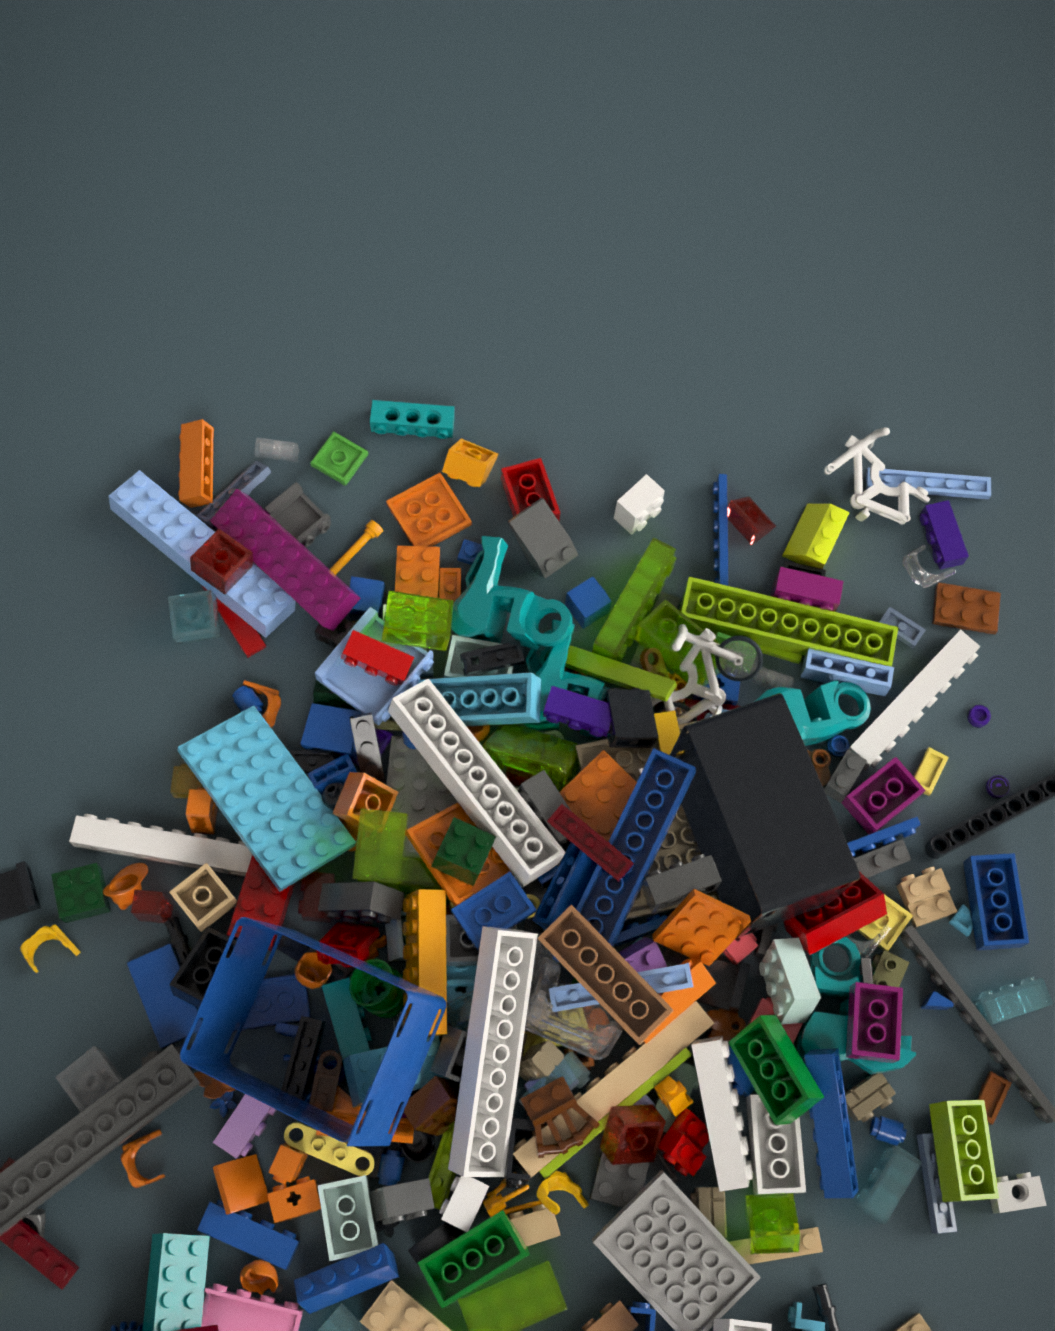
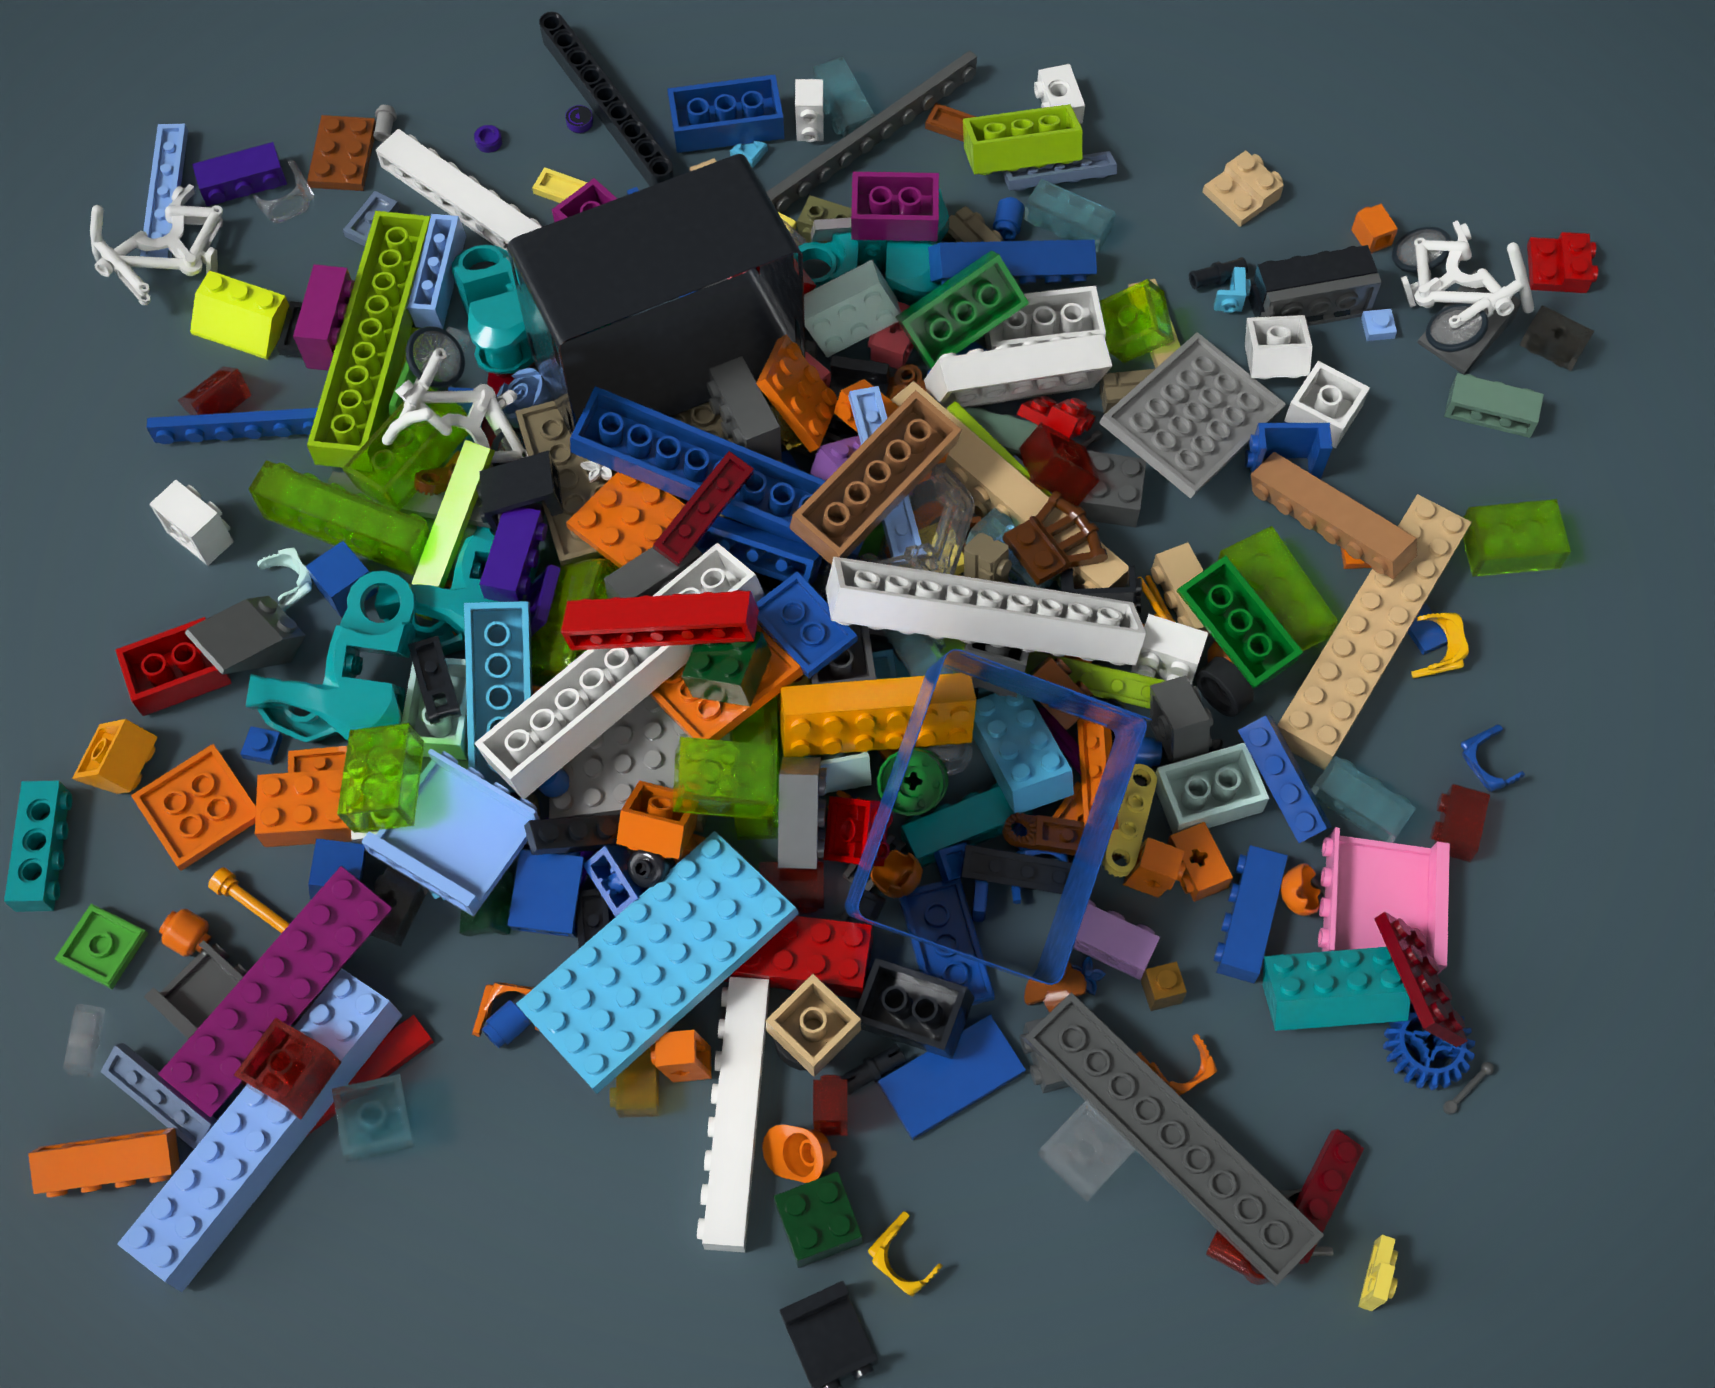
camera: 90 degrees left, 5 degrees down
(202, 1157) = (1163, 986): none -> pearl gold brick
(241, 1184) = (1191, 929): orange tile -> none
(318, 1010) = (950, 862): none -> blue plate
(340, 506) = (184, 932): none -> orange head
(377, 658) = (443, 819): red brick -> none
(496, 805) = (660, 620): none -> red brick
(549, 731) = (541, 596): none -> dark purple tile
(559, 1181) = (1142, 563): yellow helmet -> none
(576, 566) = (289, 558): none -> light aqua helmet
(667, 731) = (554, 441): yellow tile -> none
(673, 1095) = (1004, 419): light orange brick -> none
(937, 1002) = (851, 165): blue slope -> none
(992, 638) = (385, 117): none -> light grey pin
(995, 970) = (809, 110): none -> white brick

